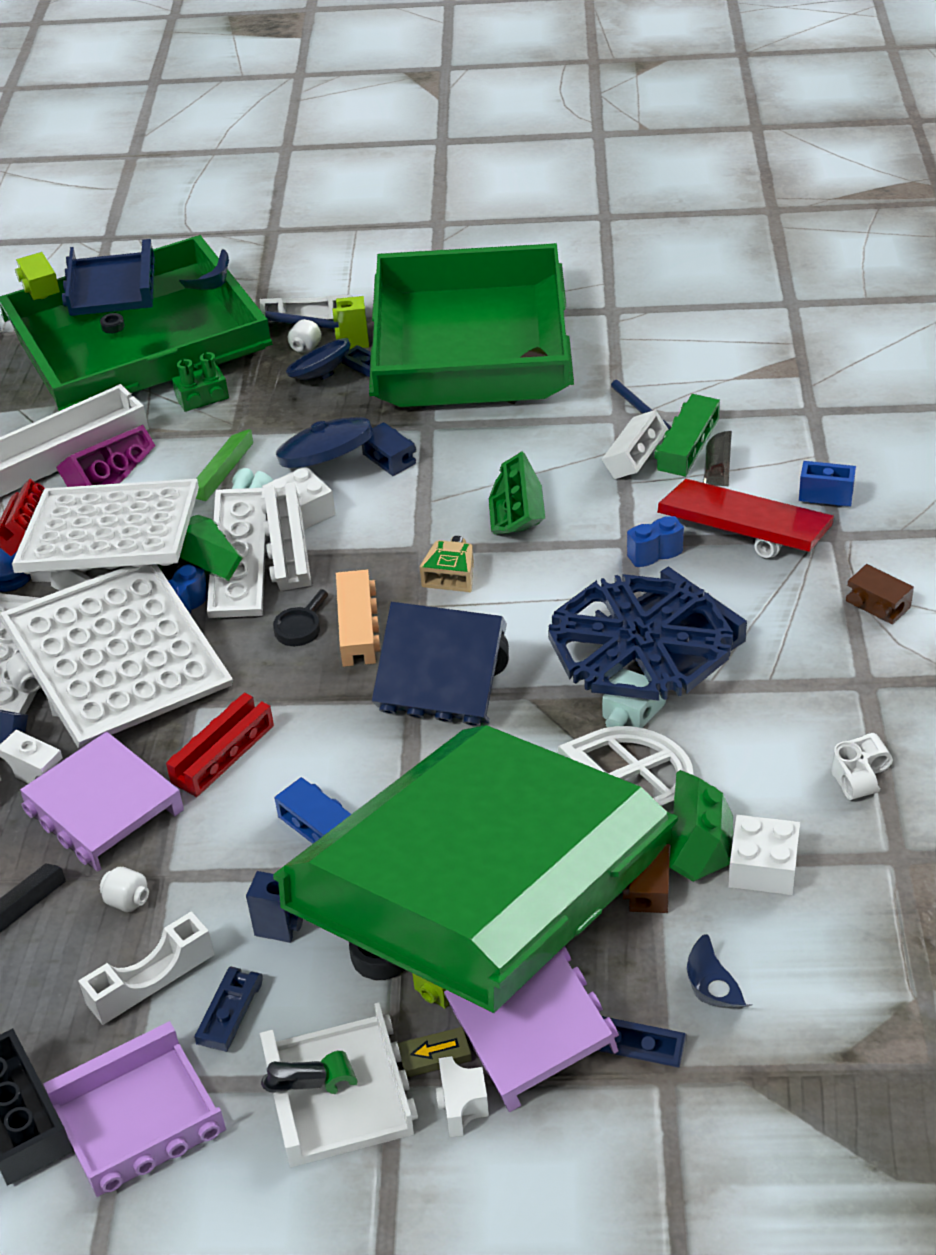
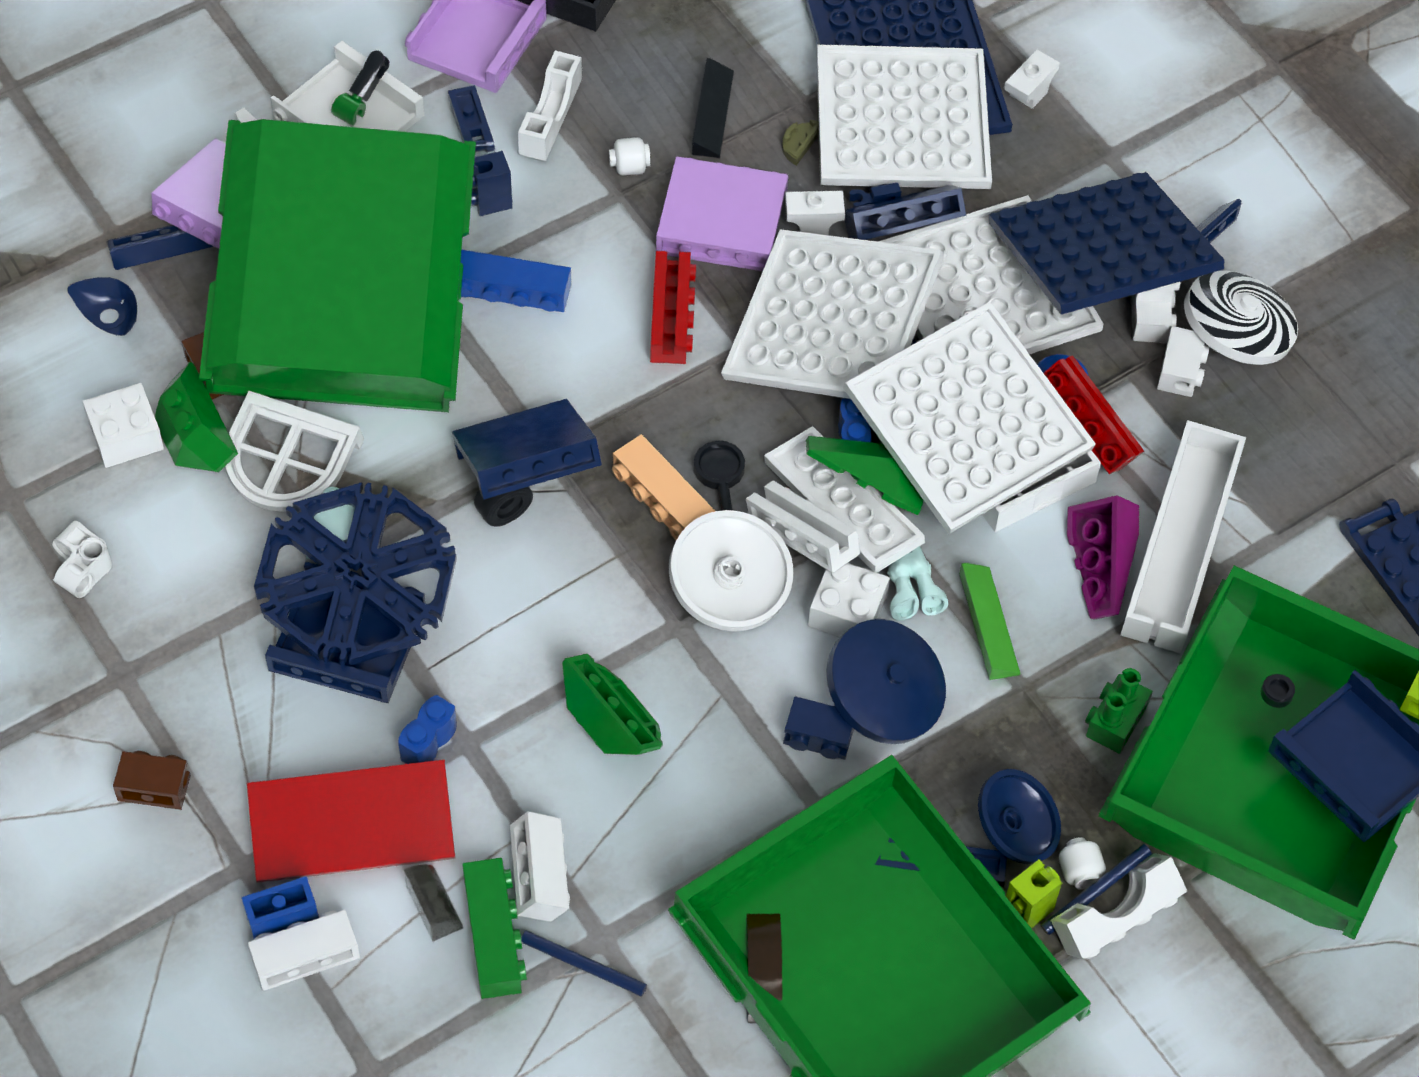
camera: 140 degrees right, 15 degrees up
(213, 279) = (1242, 806): piece -> none
(360, 542) = (731, 570): none -> white dish
(449, 565) = (621, 600): tan torso -> none
(797, 454) = (303, 949): none -> white brick

